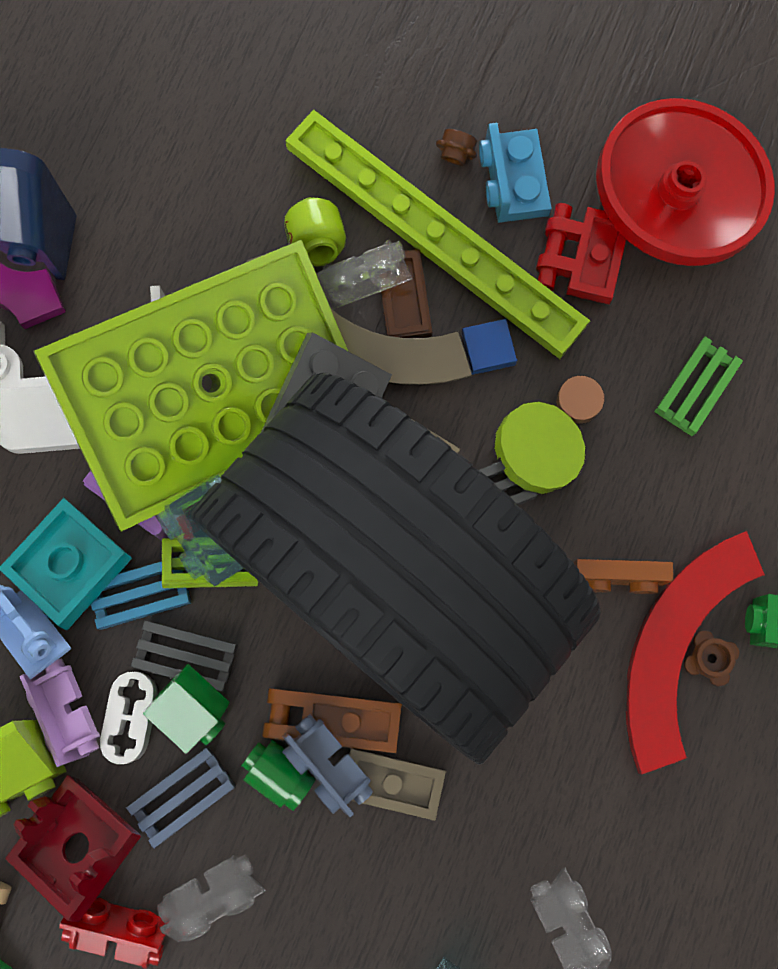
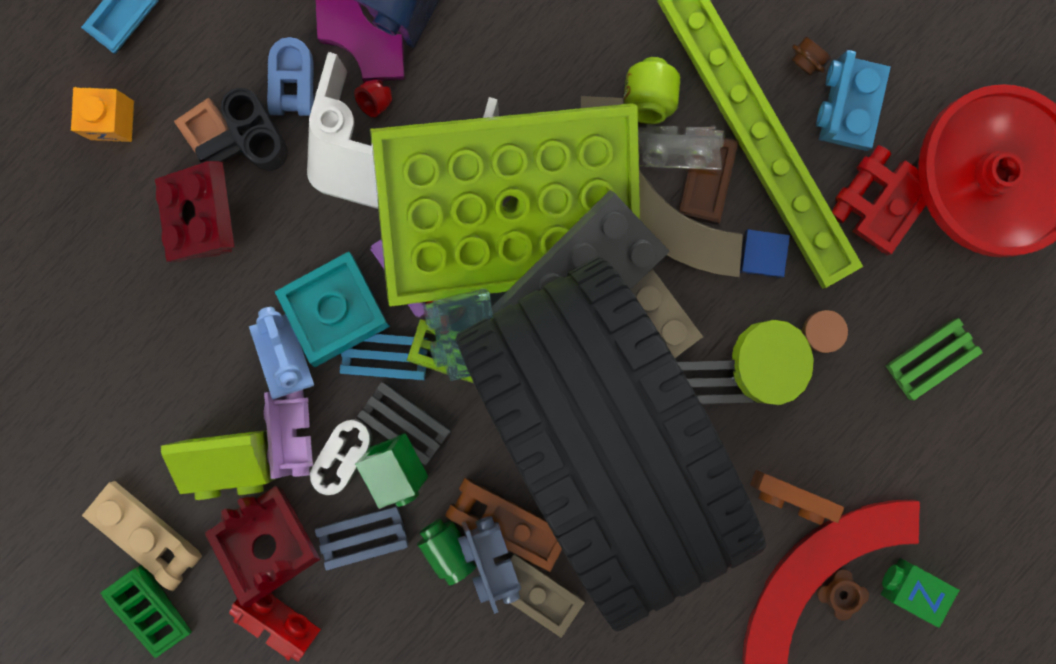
camera: 25 degrees right, 10 degrees up
(35, 336) = (373, 97): none -> red hinge
(193, 911) = (340, 630): clear hinge -> none

